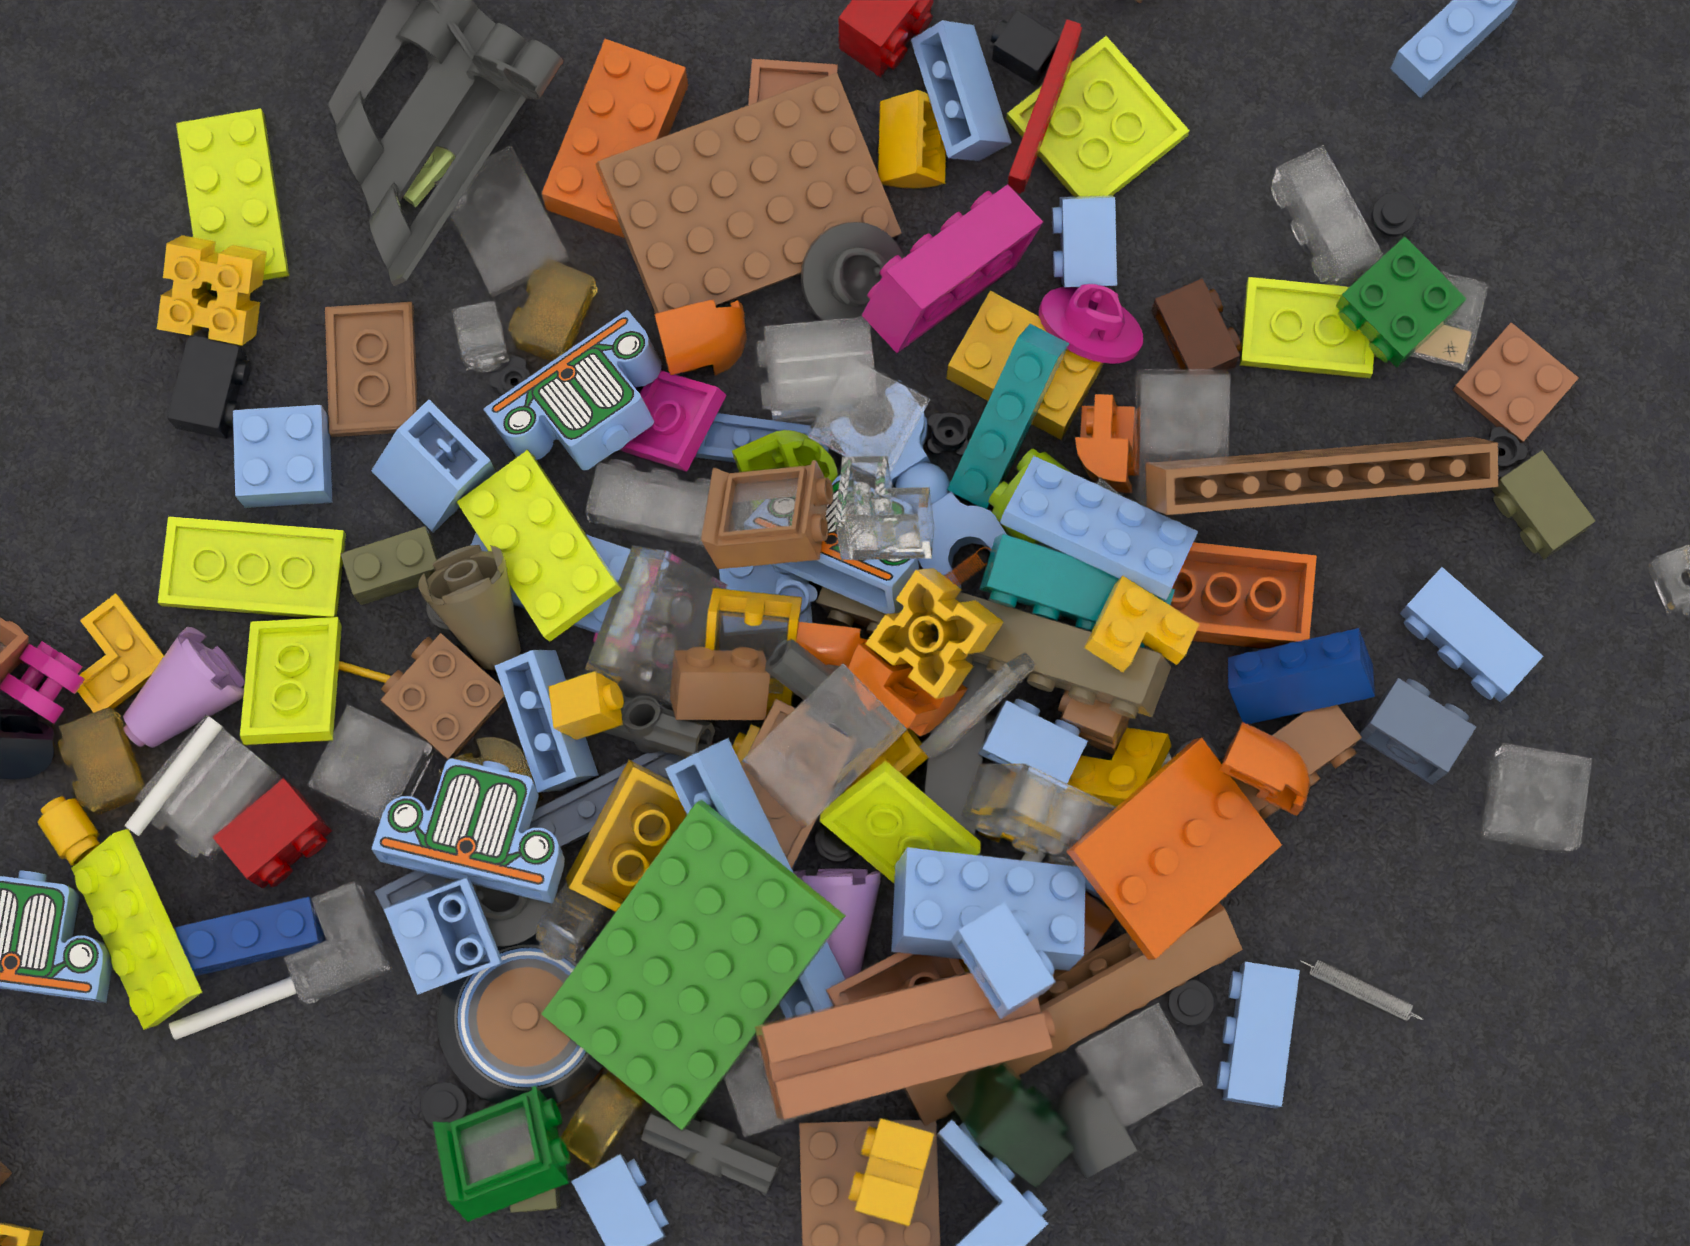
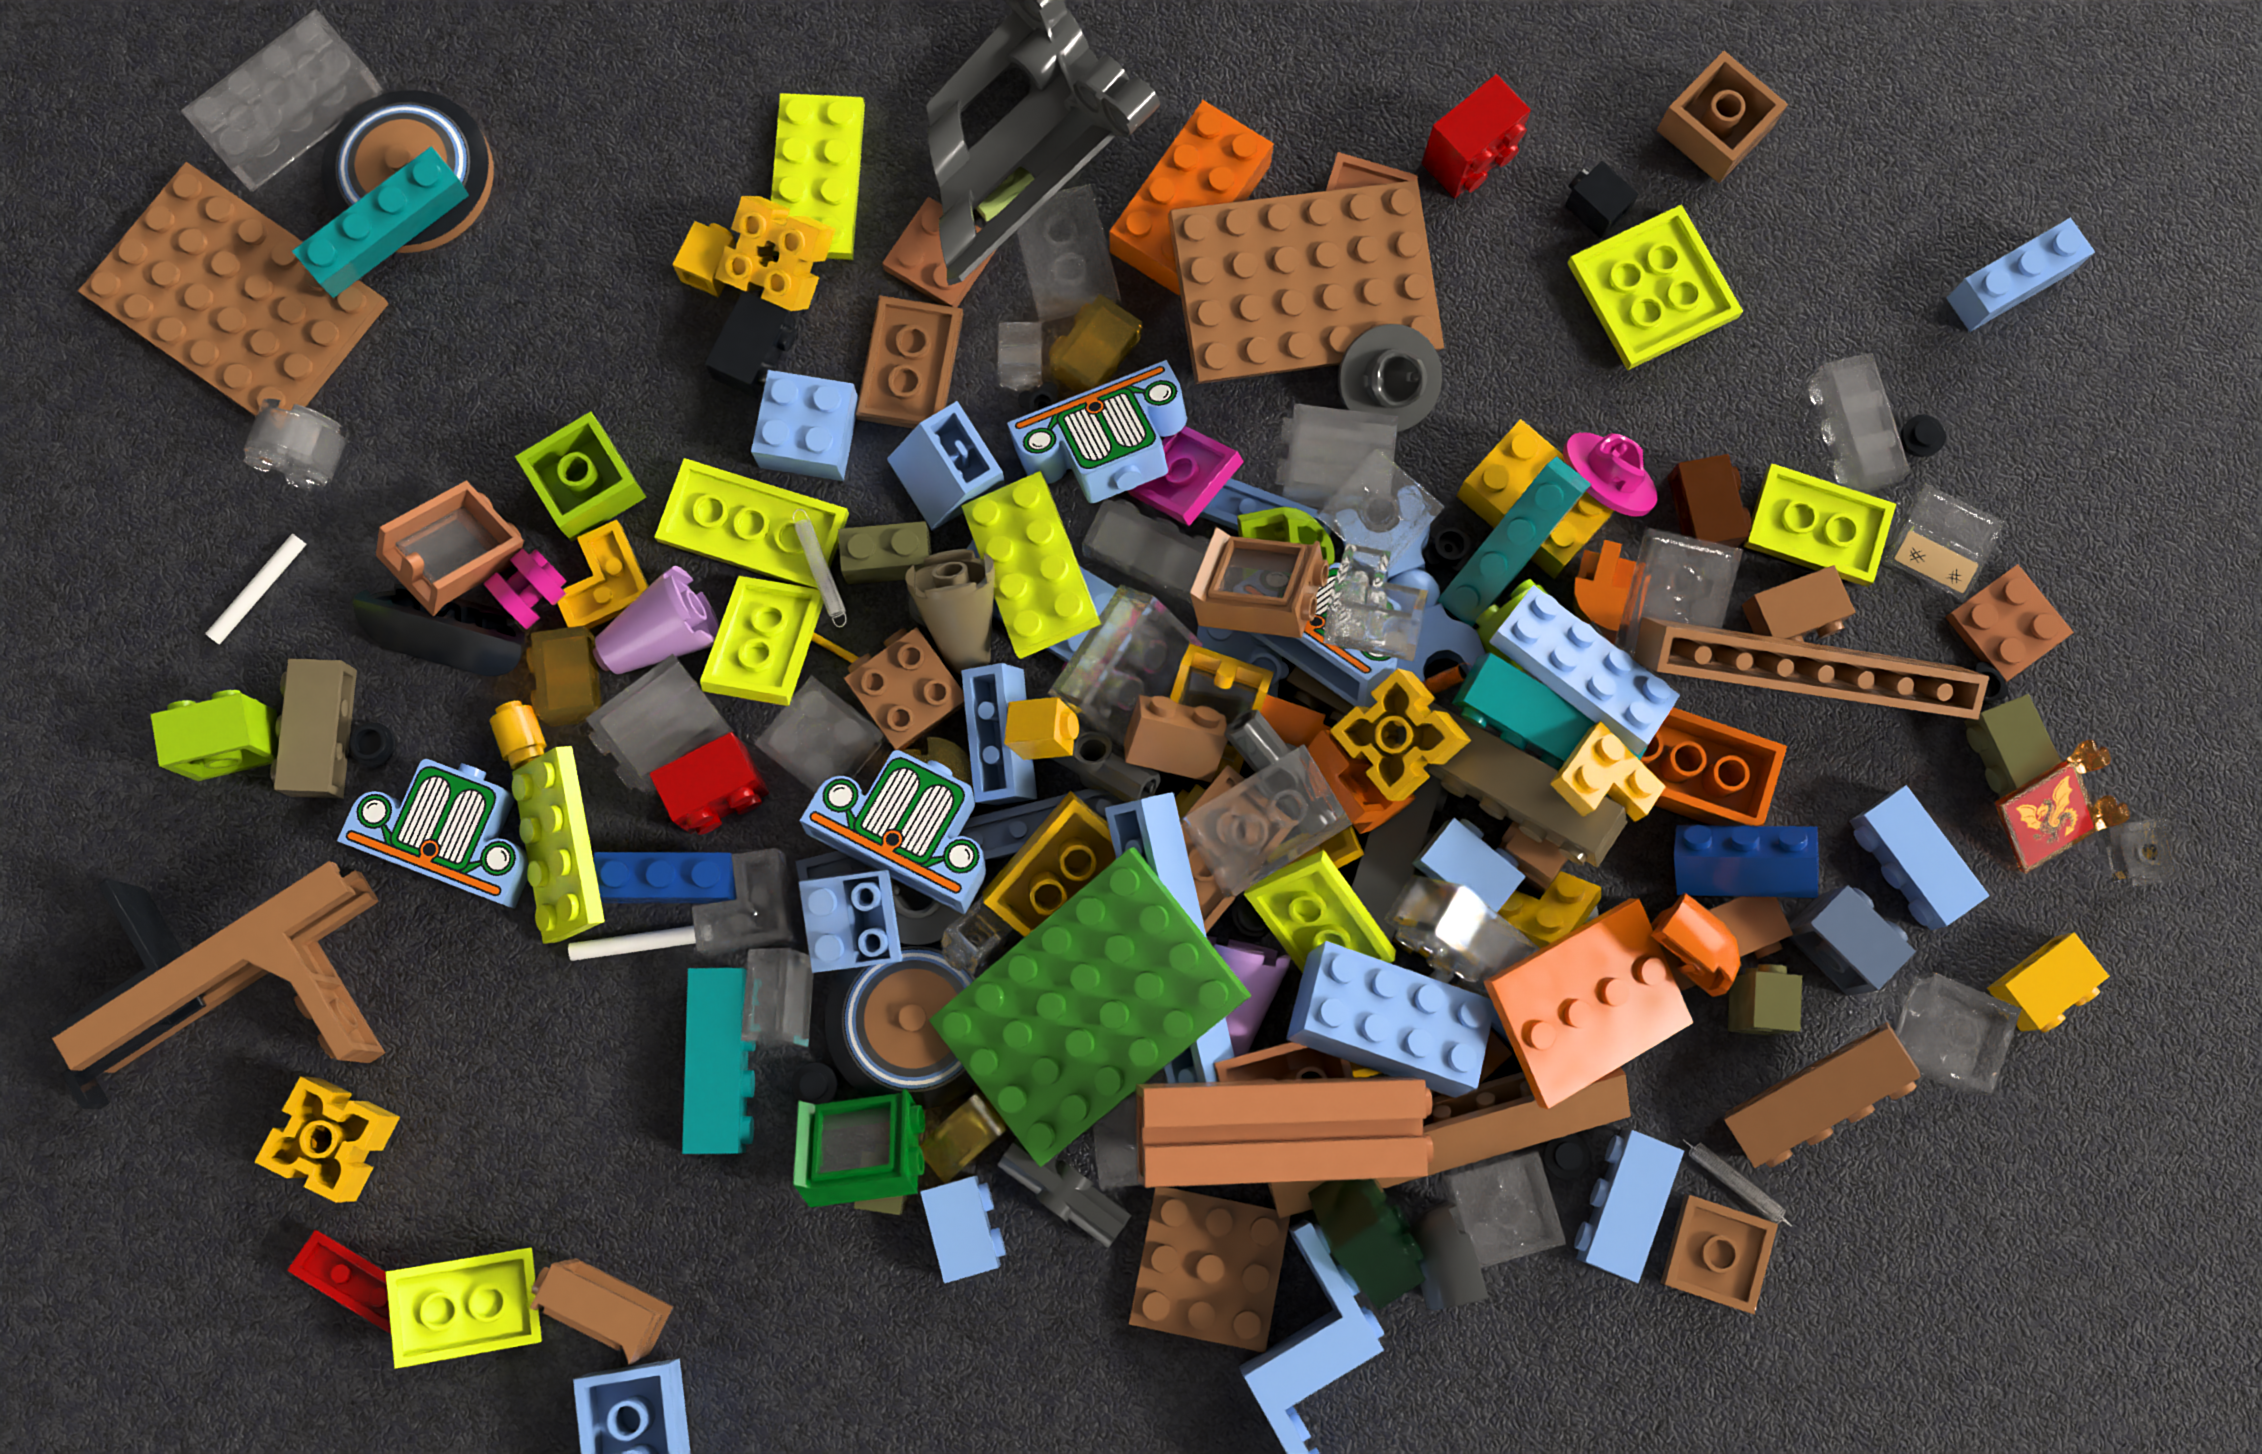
camera: 10 degrees right, 0 degrees up
(70, 559) = (580, 476): none -> lime brick
(138, 308) = (701, 256): none -> yellow brick
(173, 776) = (626, 705): white bar -> none
(303, 559) = (820, 565): none -> white piece
(344, 1102) = (716, 1064): none -> teal brick
(356, 260) = (920, 259): none -> nougat plate
(389, 1028) = (777, 998): none -> clear brick
(702, 336) = (1232, 400): orange brick -> none
(892, 1172) = (1239, 1261): yellow brick -> none
(910, 143) = (1473, 263): yellow brick -> none
(950, 267) = (1488, 386): dark pink brick -> none
(960, 91) = (1531, 225): light blue brick -> none
(978, 705) = (1426, 816): clear tile -> none
(1004, 959) = (1401, 1076): light blue brick -> none
(1044, 106) = (1610, 256): red tile -> none
(1086, 241) = (1622, 392): light blue brick -> none
(1306, 414) = (1801, 607): none -> medium nougat brick
(1347, 808) = (1765, 1001): none -> olive brick
(1356, 1061) = (1719, 1254): none -> medium nougat plate
(1399, 303) = (1917, 519): green brick -> none
(1419, 886) = (1823, 1095): none -> medium nougat brick
(1591, 557) = (2056, 809): none -> flag
(1621, 727) = (2050, 982): none -> yellow brick

